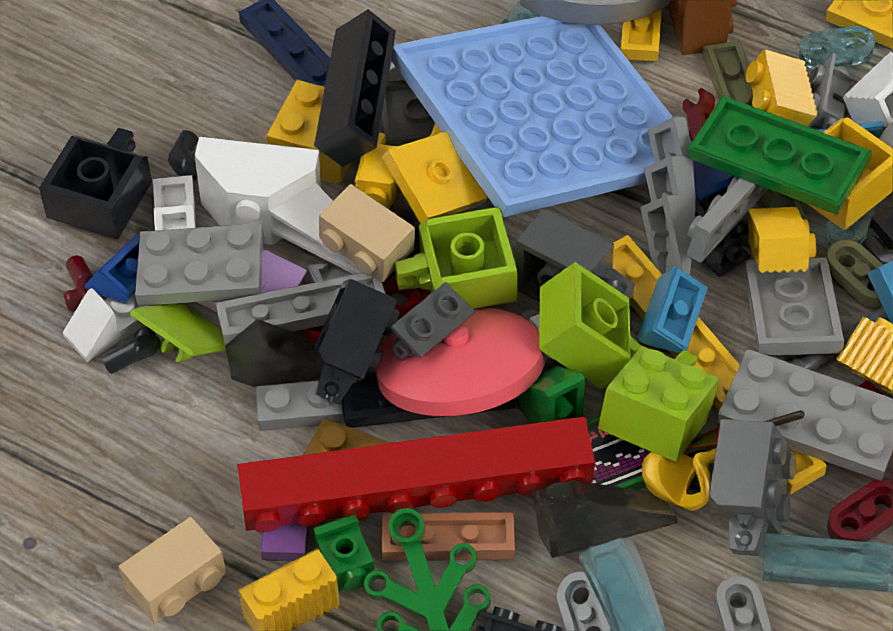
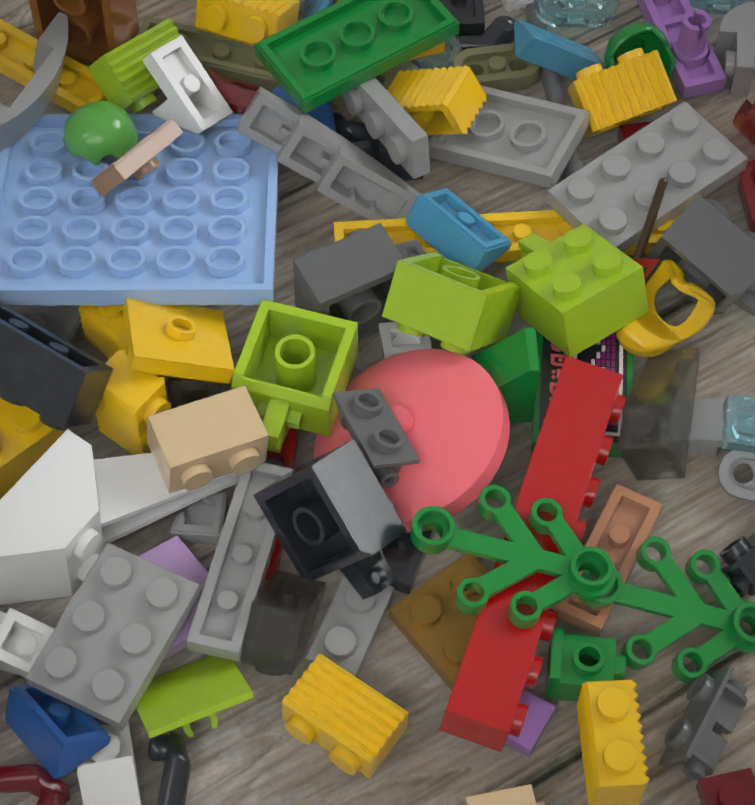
camera: 65 degrees left, 5 degrees up
(221, 426) = (343, 717): none -> yellow brick
(382, 455) = (520, 556): none -> green plant
(578, 85) = (138, 159): none -> plate
(594, 58) = (99, 131): none -> bright green hair
(673, 83) = (190, 92): none -> white slope
(678, 57) = (124, 75): none -> lime brick

